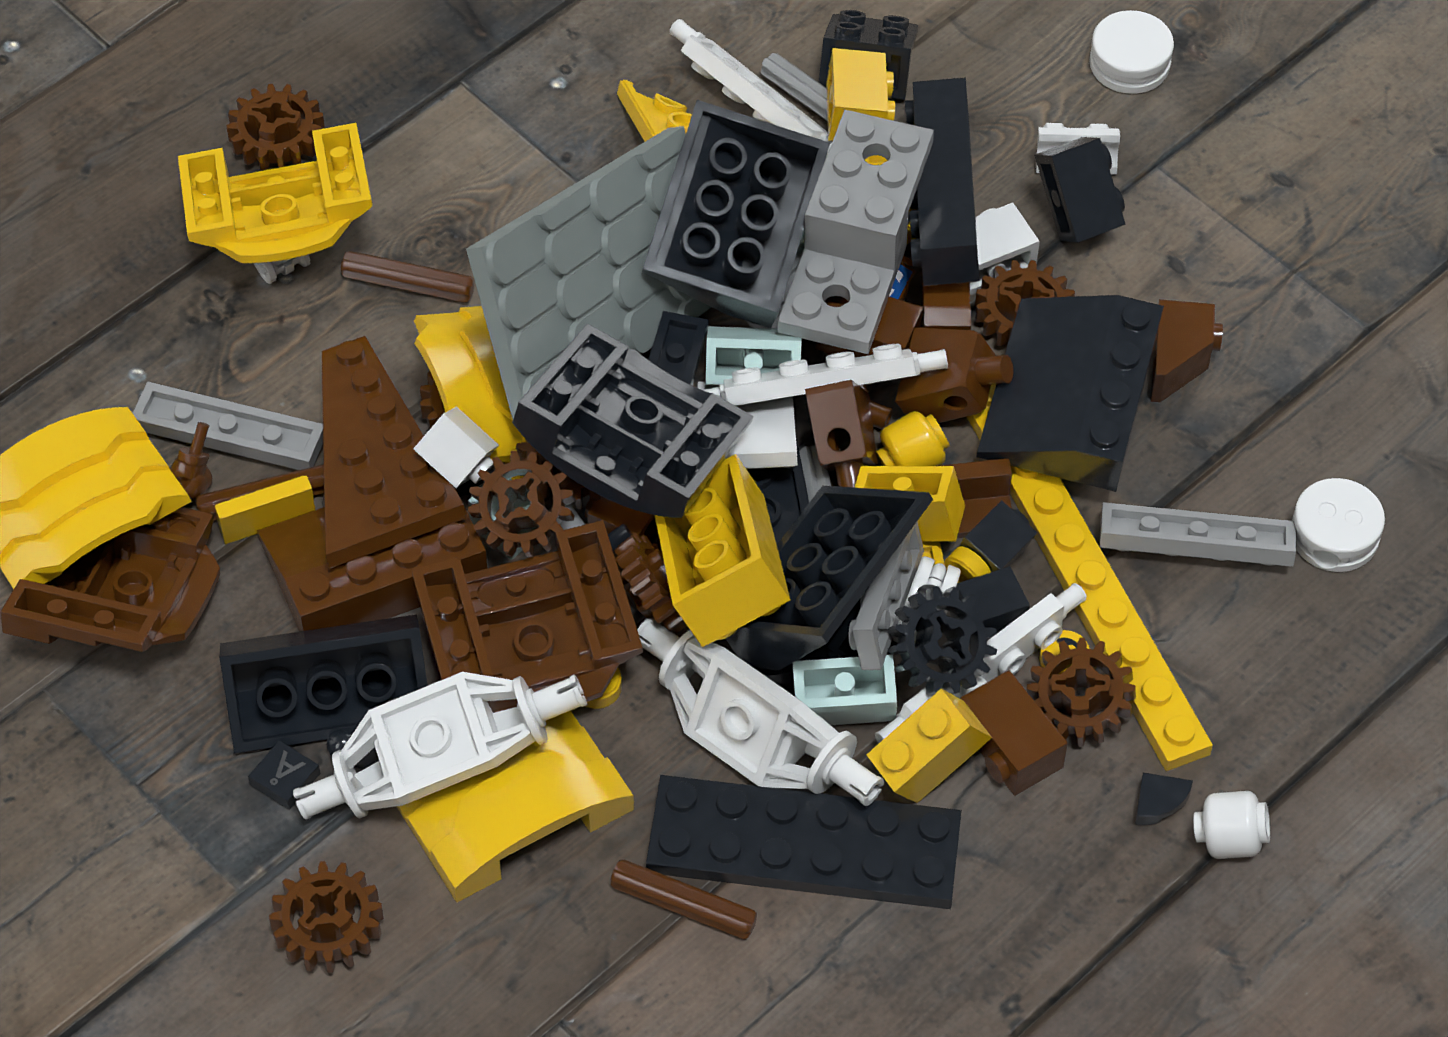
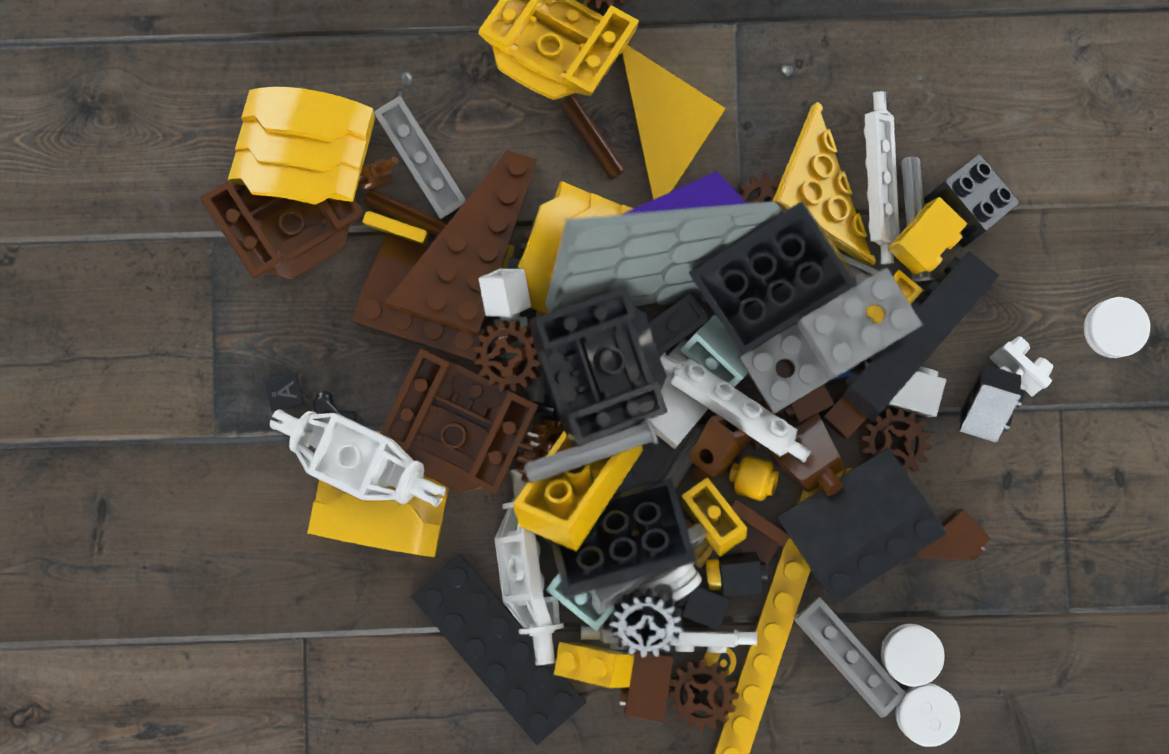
camera: 45 degrees right, 30 degrees up
(317, 679) = (342, 358): black slope -> none
(326, 918) = (237, 506): reddish brown gear -> none
(460, 195) = (669, 119): none -> yellow tile
(683, 899) = (413, 629): reddish brown axle -> none
(710, 496) = (591, 451): none -> light grey axle
(1258, 479) = (912, 655): none -> white head

